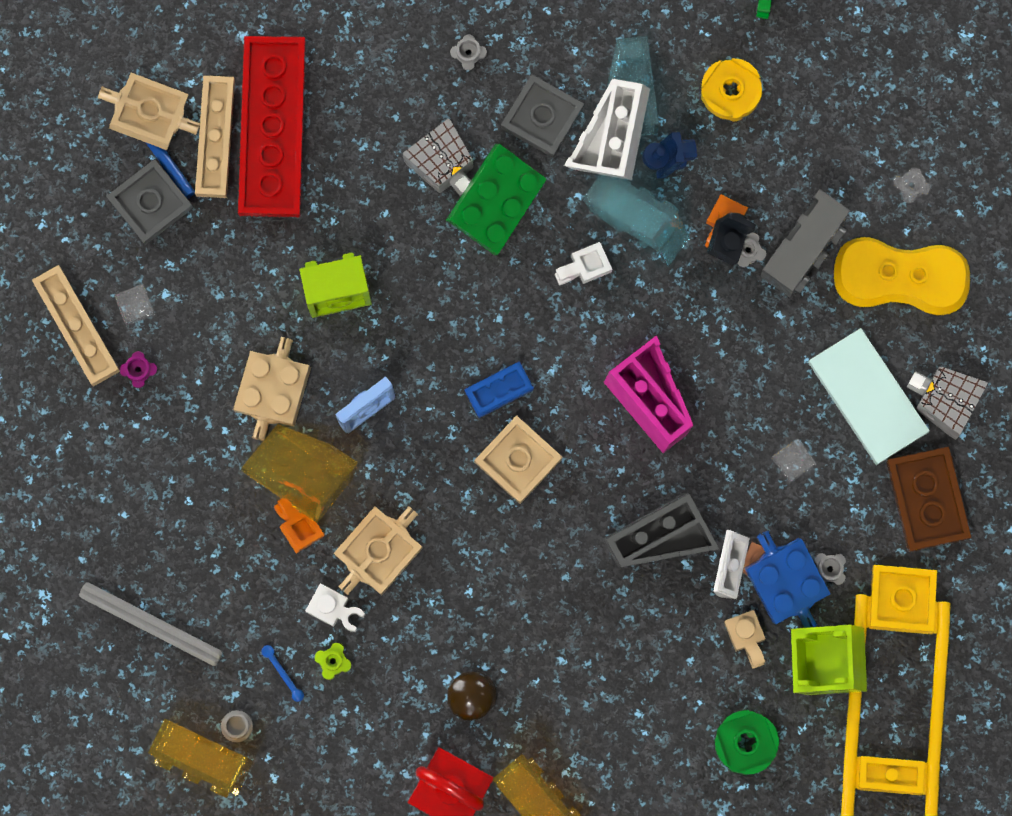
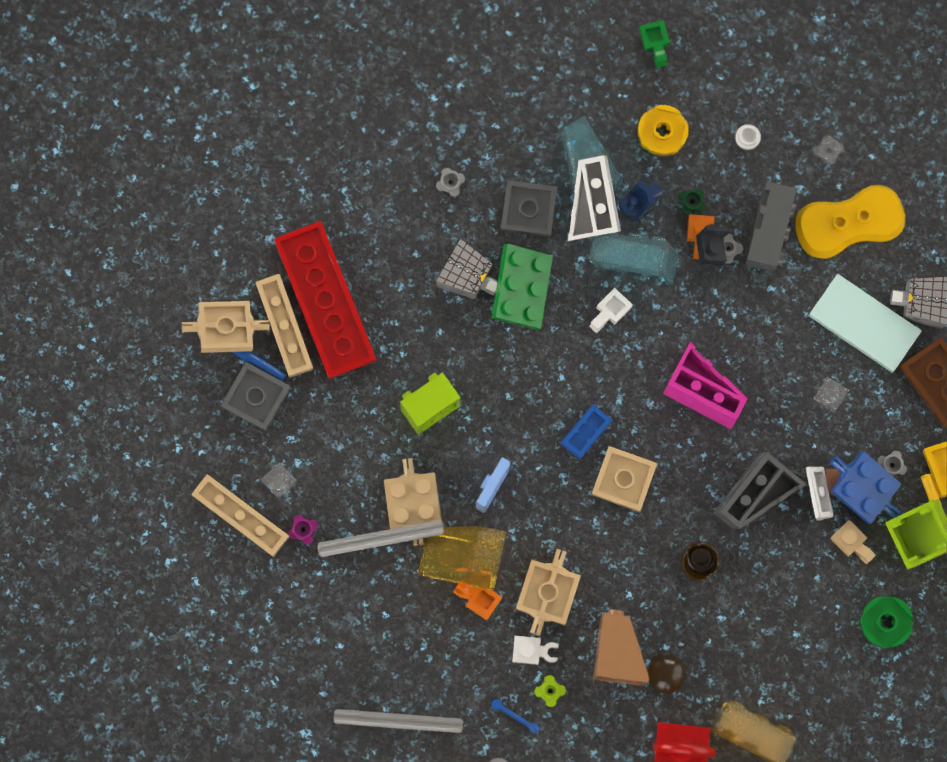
camera: 30 degrees left, 0 degrees up
(218, 414) = (381, 538): none -> light grey axle
(424, 647) = (618, 651): none -> medium nougat slope
(563, 586) = (700, 561): none -> dark brown hair
(737, 175) = (695, 195): none -> dark green plate
(825, 134) = (748, 137): none -> white plate

